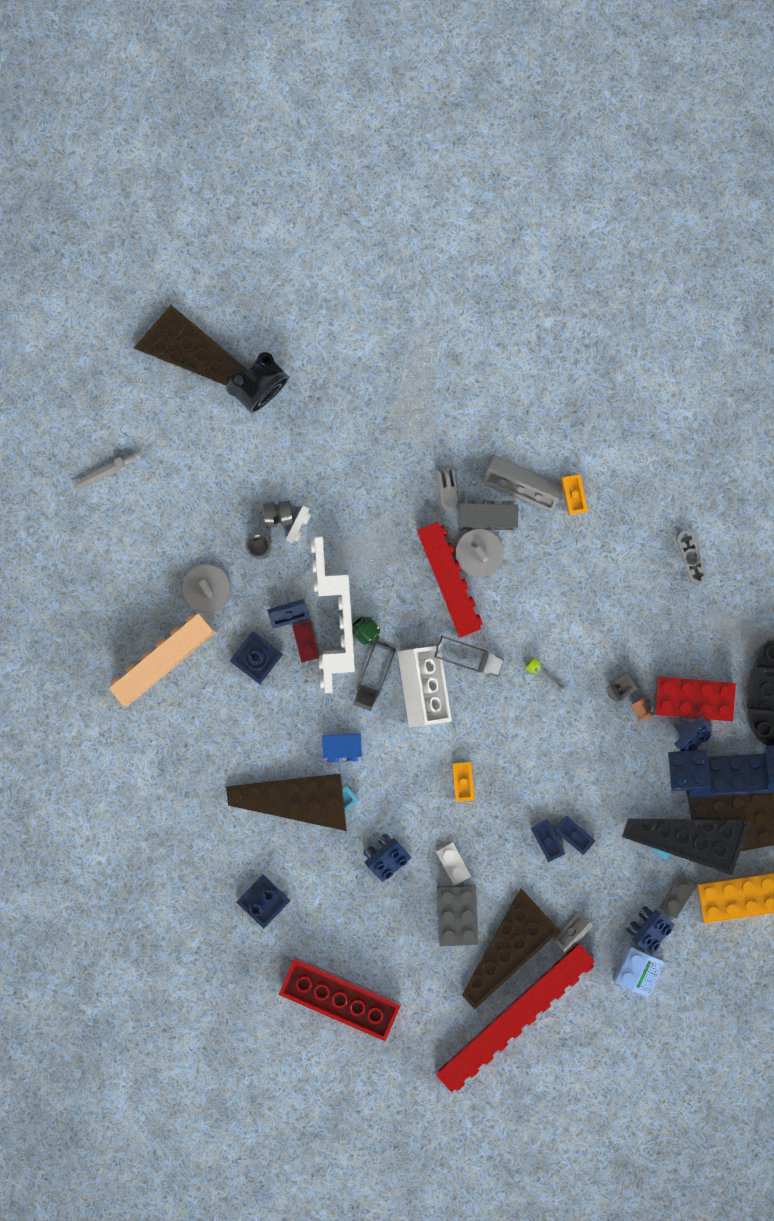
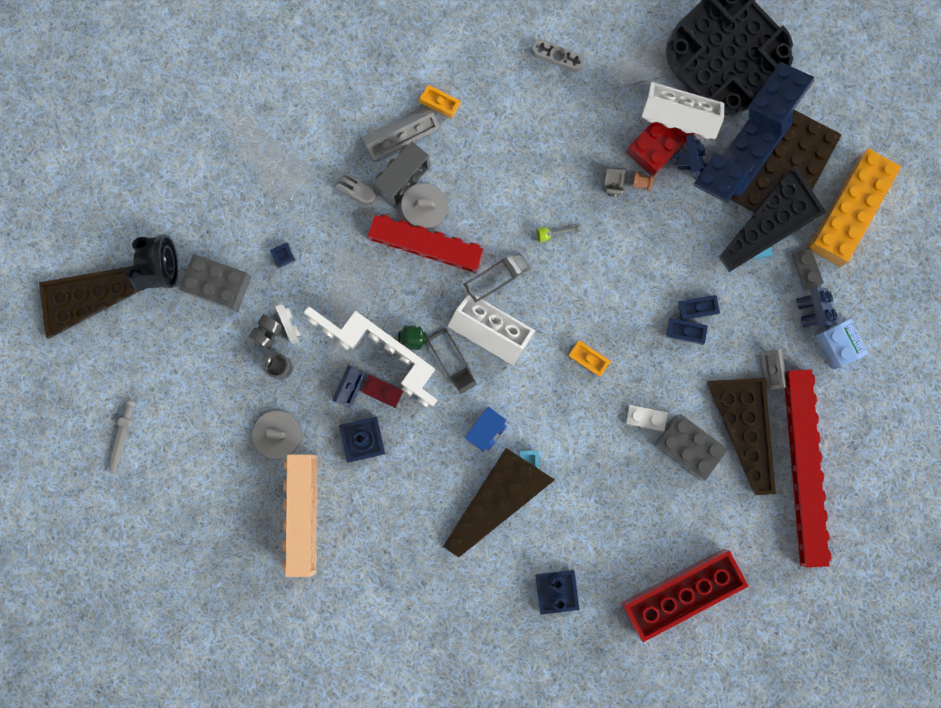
camera: 50 degrees left, 5 degrees down
(283, 442) = (215, 282): none -> dark grey brick
(348, 475) = (282, 255): none -> dark blue plate
(387, 859) = (603, 465): dark blue plate -> none
(720, 697) = (683, 111): none -> white slope

